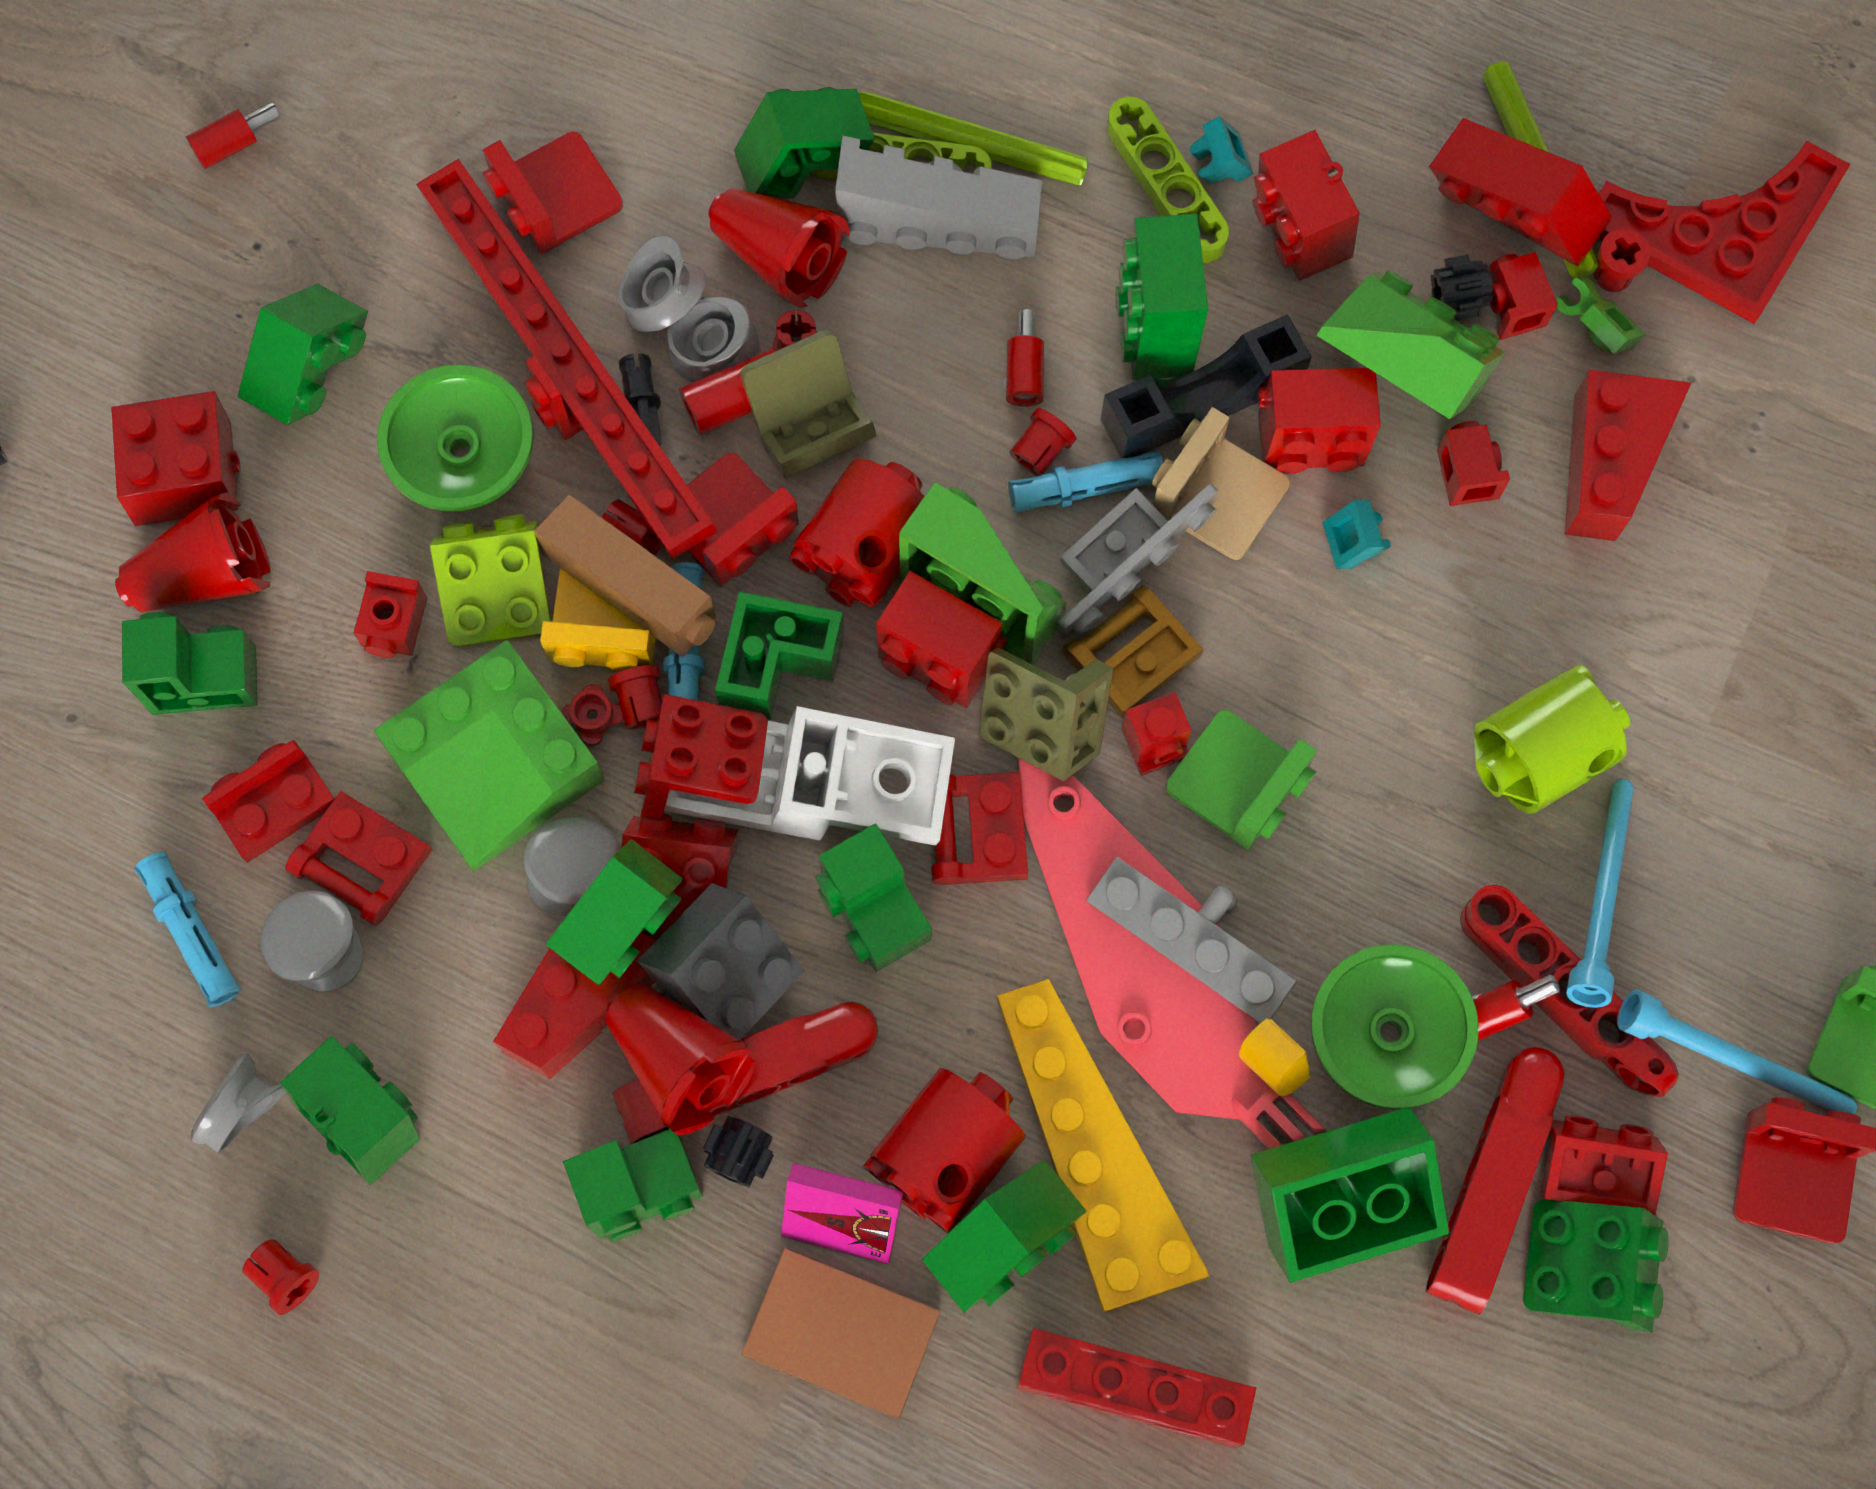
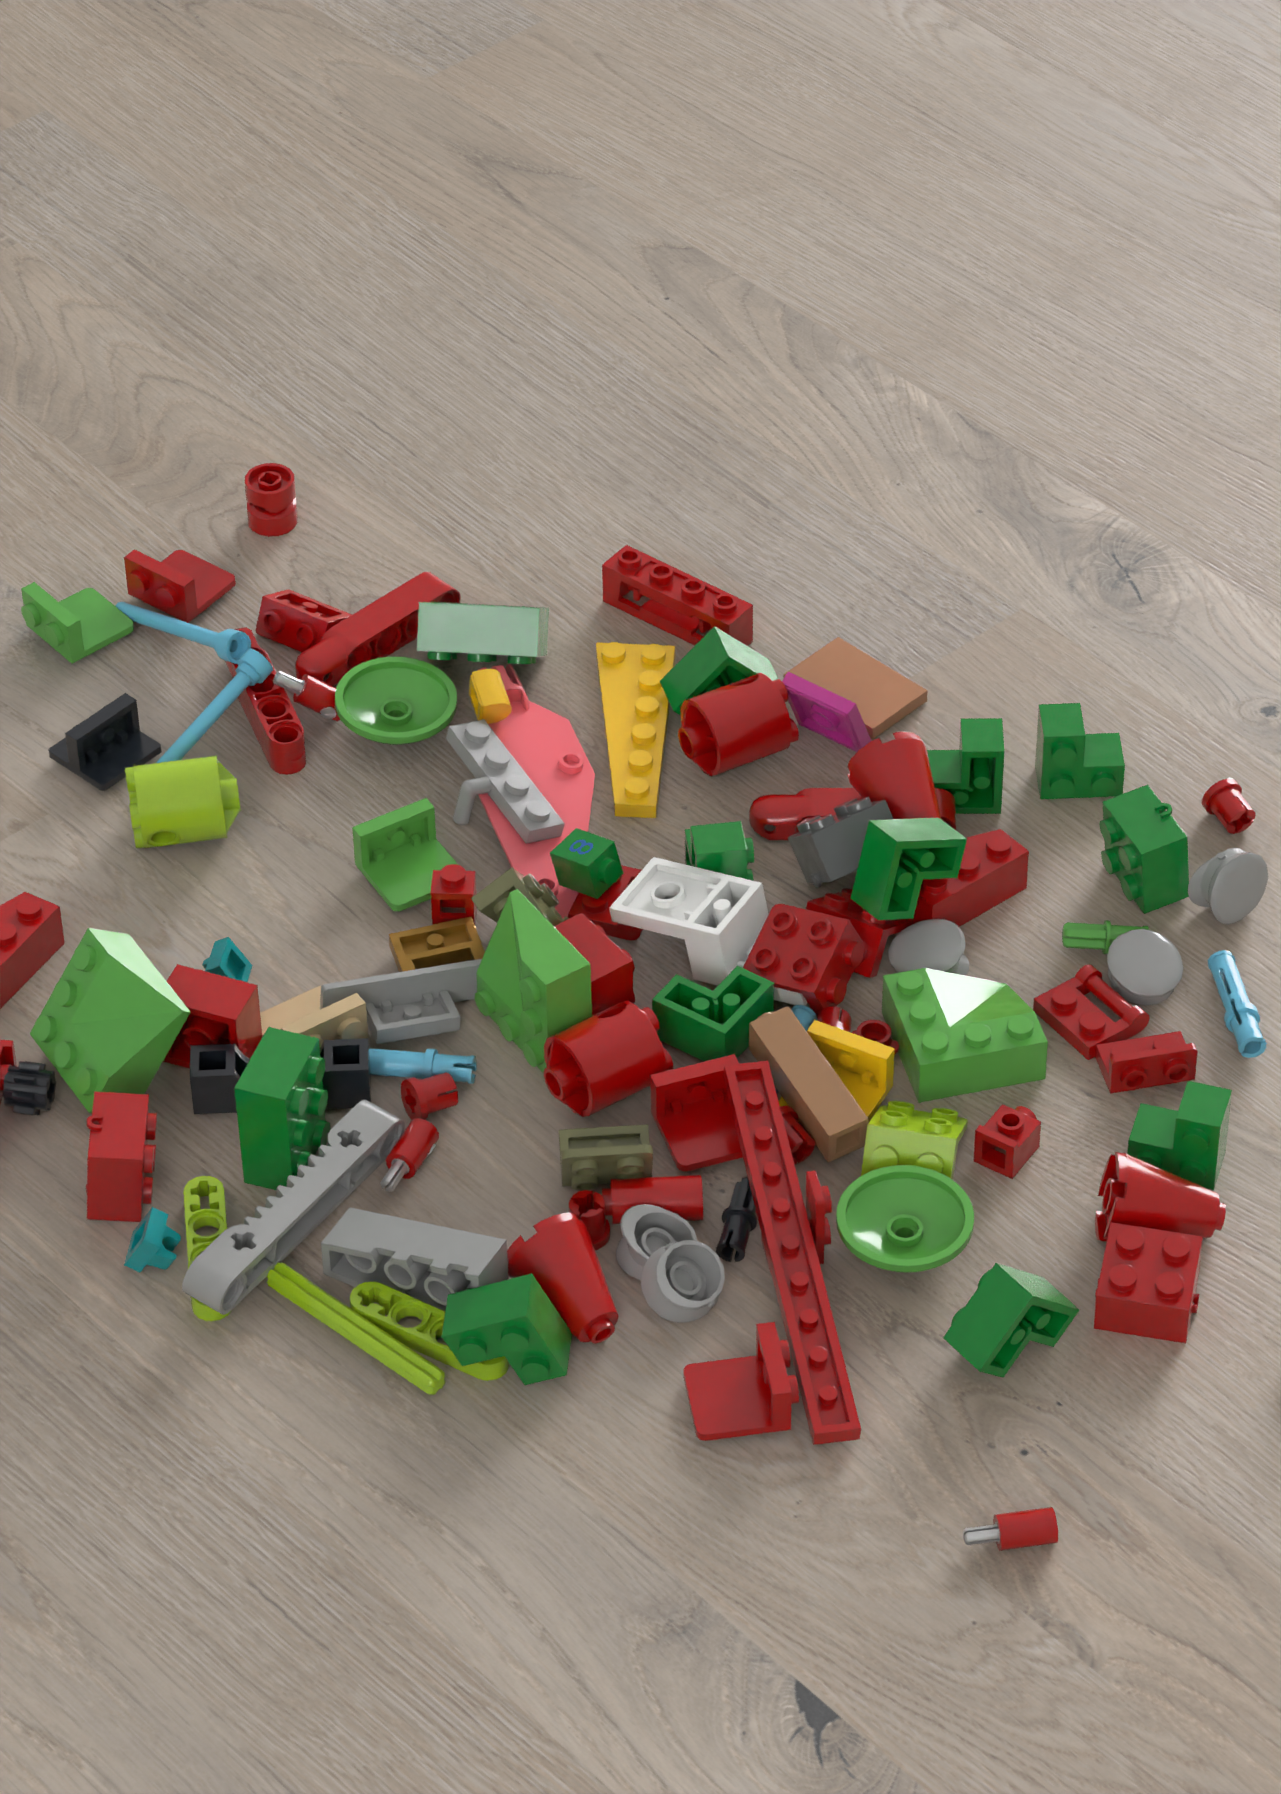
camera: 155 degrees left, 30 degrees down
(371, 980) = (1093, 935): none -> bright green axle
(492, 1273) = (1075, 762): none -> green brick
(1018, 817) = (586, 863): none -> green brick
(1079, 352) = (249, 1250): none -> light grey gear
(1596, 1262) = (344, 574): green bracket -> none
(1705, 833) = (106, 744): none -> black bracket
(1778, 1377) = (271, 499): none -> red wheel

